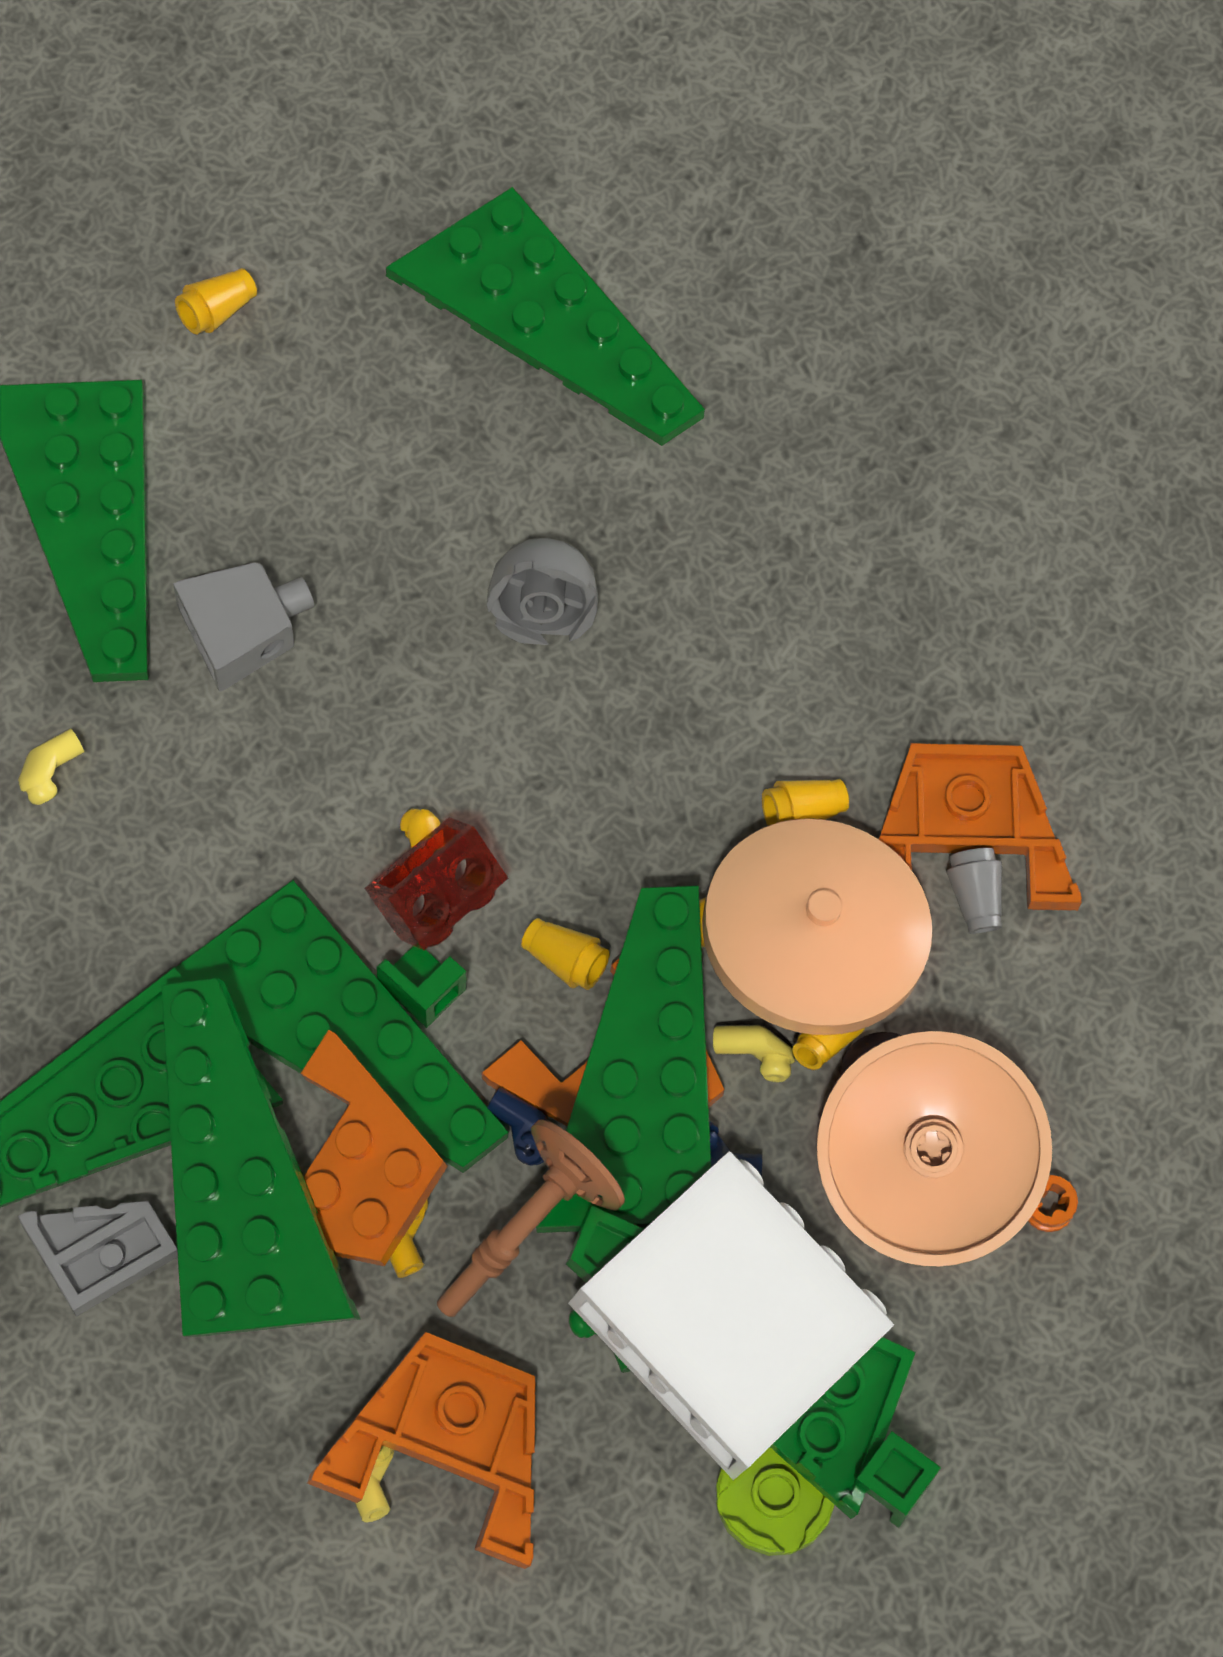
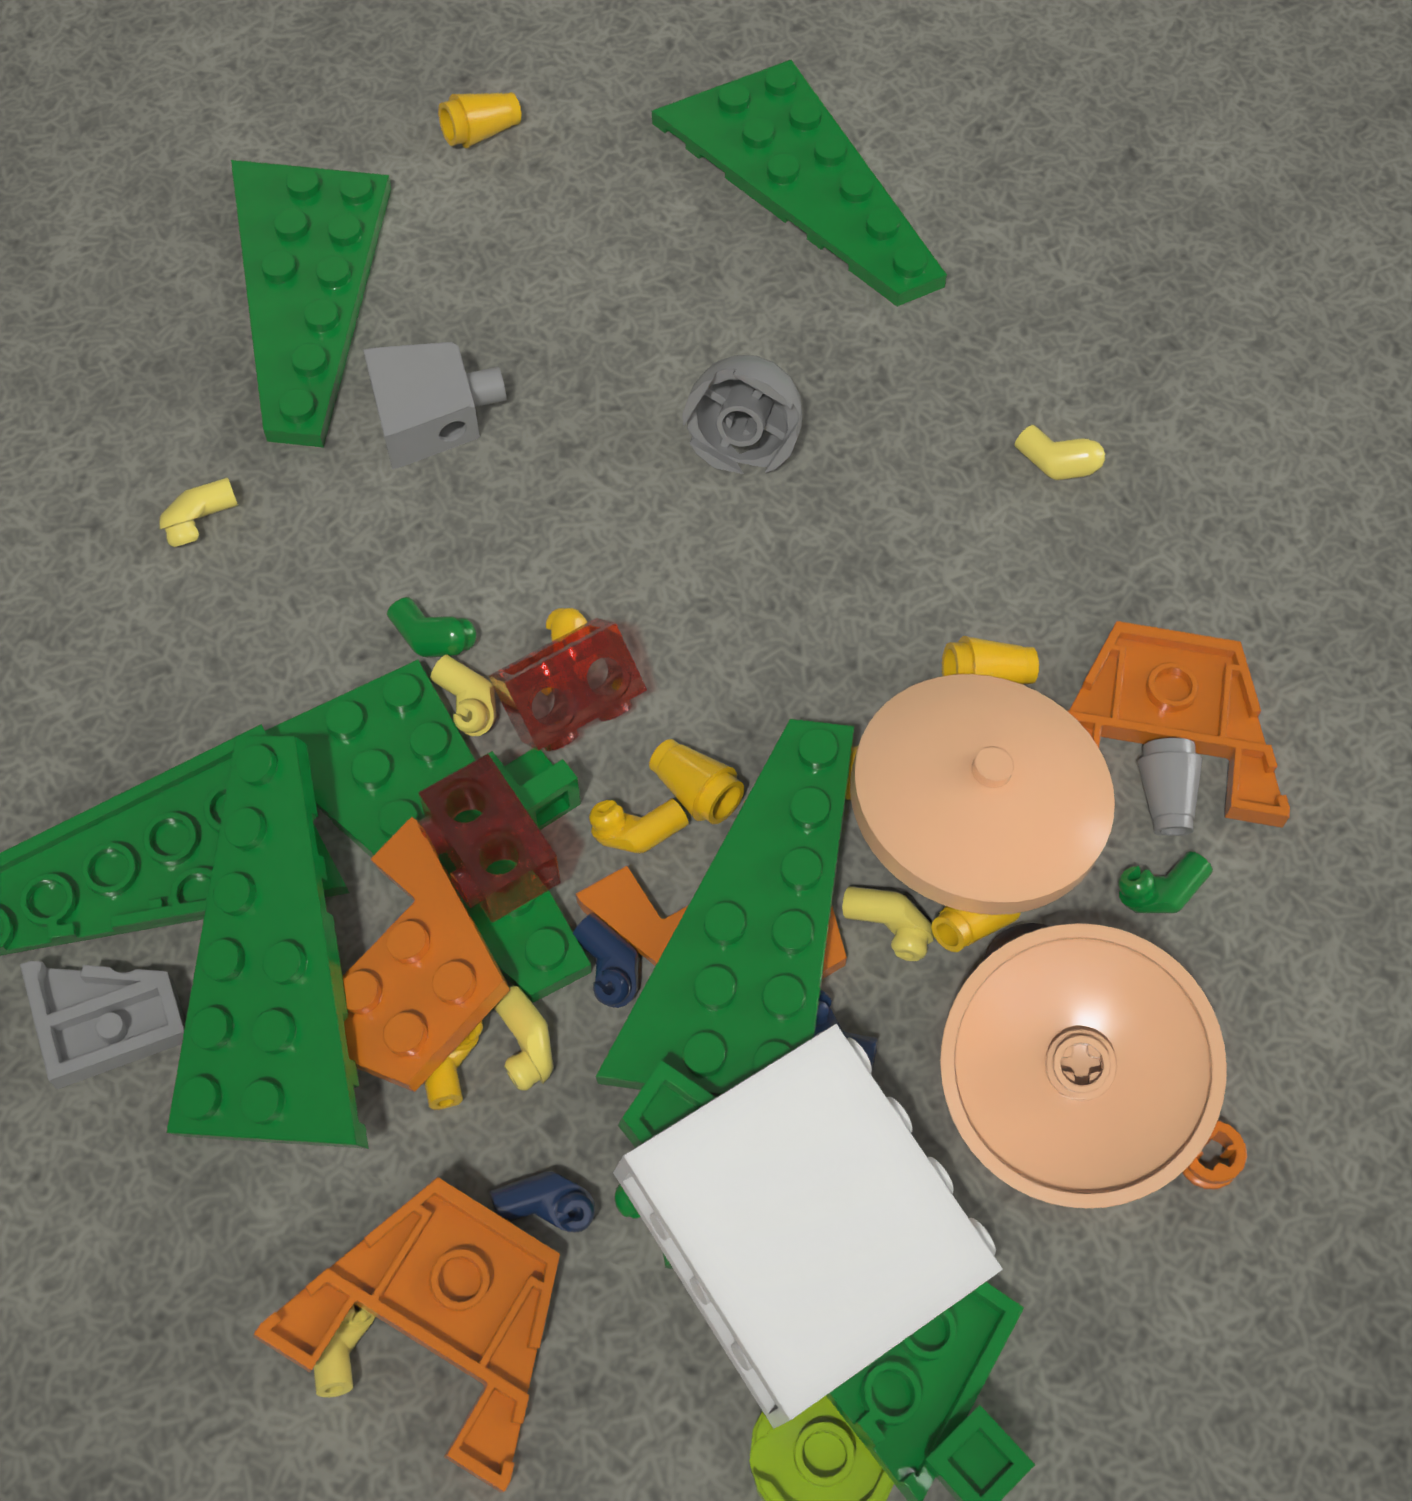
camera: 15 degrees right, 5 degrees down
(297, 854) = (431, 635): none -> green arm
(349, 903) = (473, 695): none -> light yellow arm
(415, 1031) = (499, 833): none -> clear red brick
(473, 1204) = (532, 1035): none -> light yellow arm
(514, 1333) = (548, 1197): none -> dark blue arm
(520, 1009) = (635, 833): none -> yellow arm
(570, 1172) = (636, 1018): nougat dish -> none
(840, 586) = (1062, 458): none -> light yellow arm
(984, 987) = (1167, 893): none -> green arm

